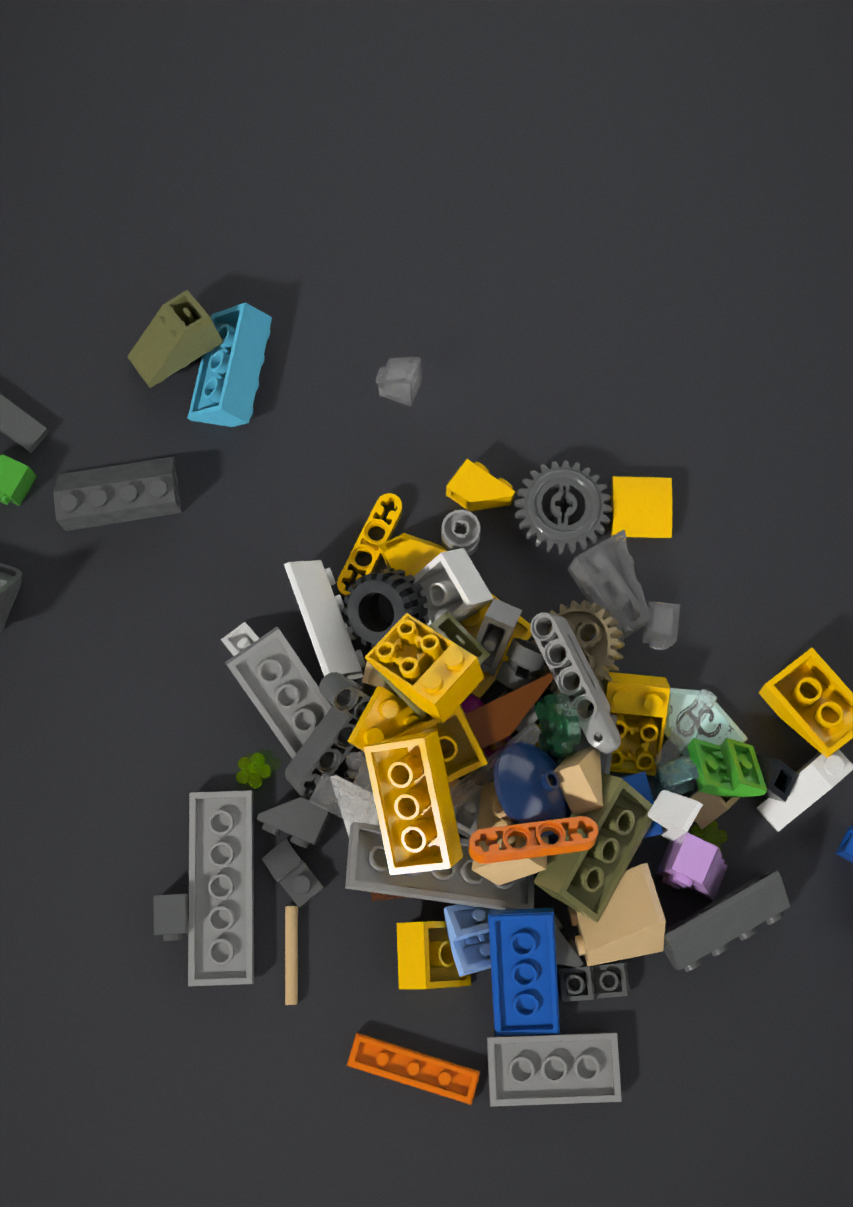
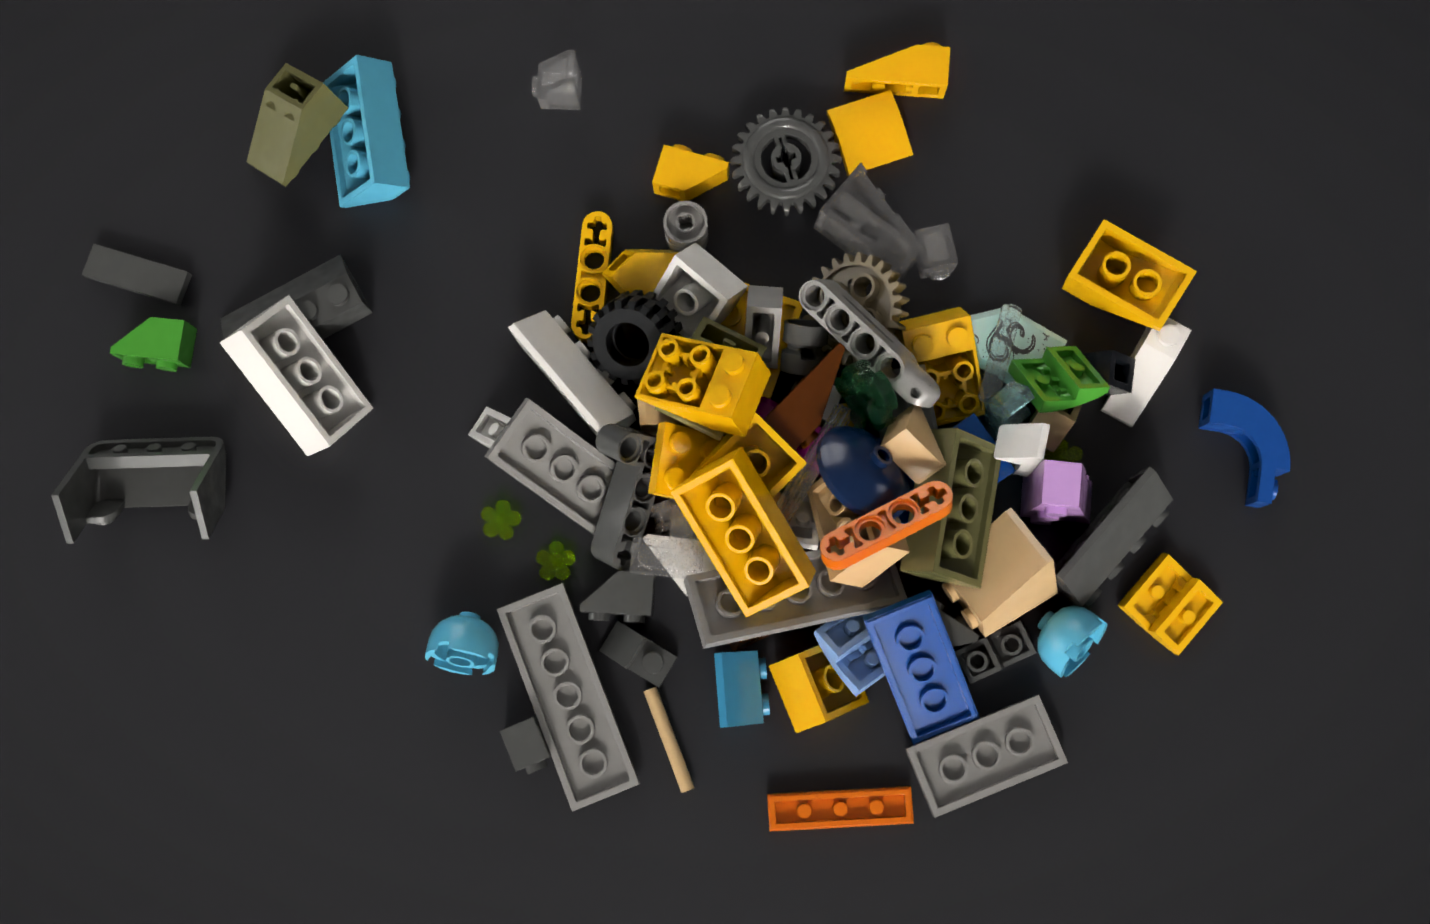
camera: 15 degrees left, 5 degrees up
(100, 543) = (297, 376): none -> white slope
(151, 811) = (463, 644): none -> medium azure cylinder
(220, 719) = (500, 520): none -> clear neon green plant
(365, 933) = (740, 688): none -> dark azure slope
(658, 993) = (1067, 638): none -> medium azure cylinder
(690, 468) = (909, 72): none -> yellow slope
(758, 996) = (1170, 603): none -> yellow slope

